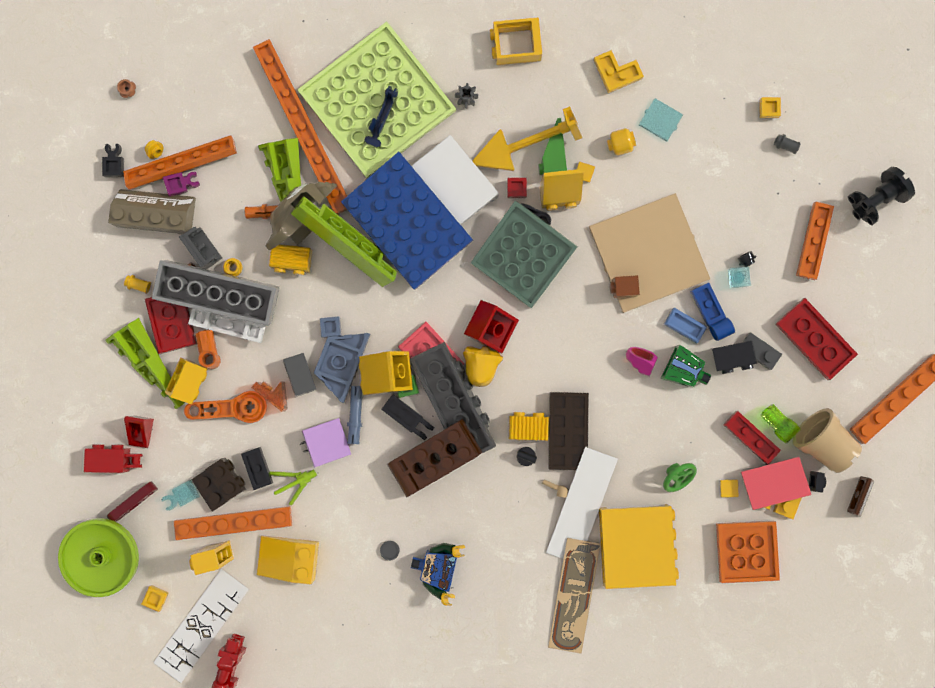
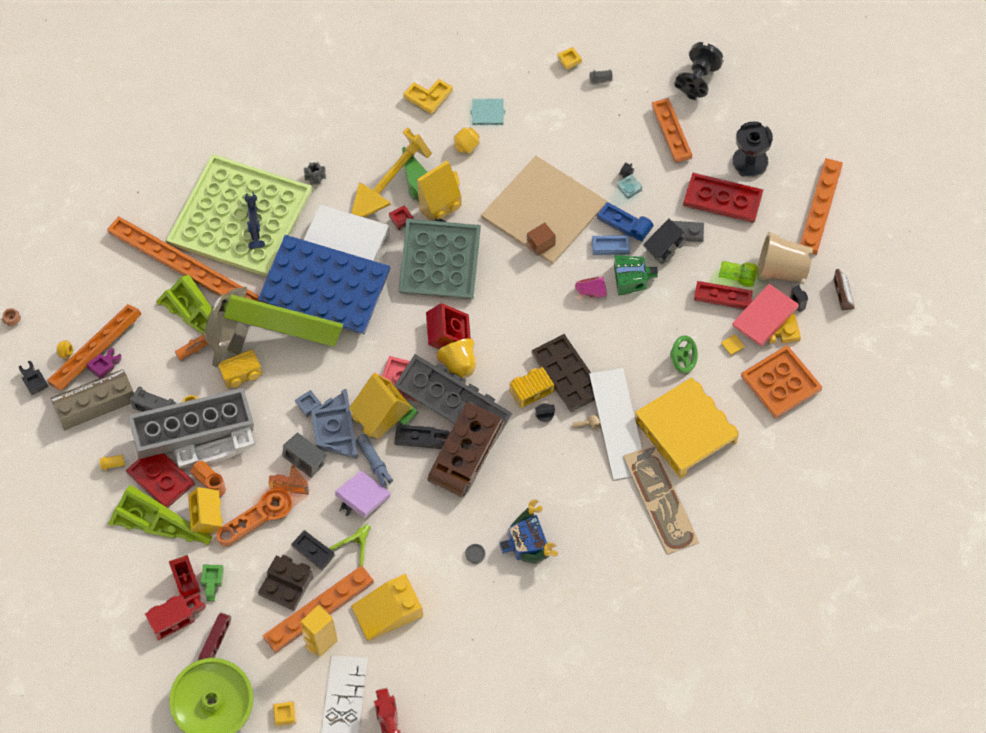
camera: 30 degrees left, 25 degrees down
(161, 444) = (211, 578): none -> bright green plate
(182, 494) = (256, 611): clear light blue plate -> none
(517, 25) = (334, 97): yellow window -> none
(875, 312) = (753, 143): none -> black piece

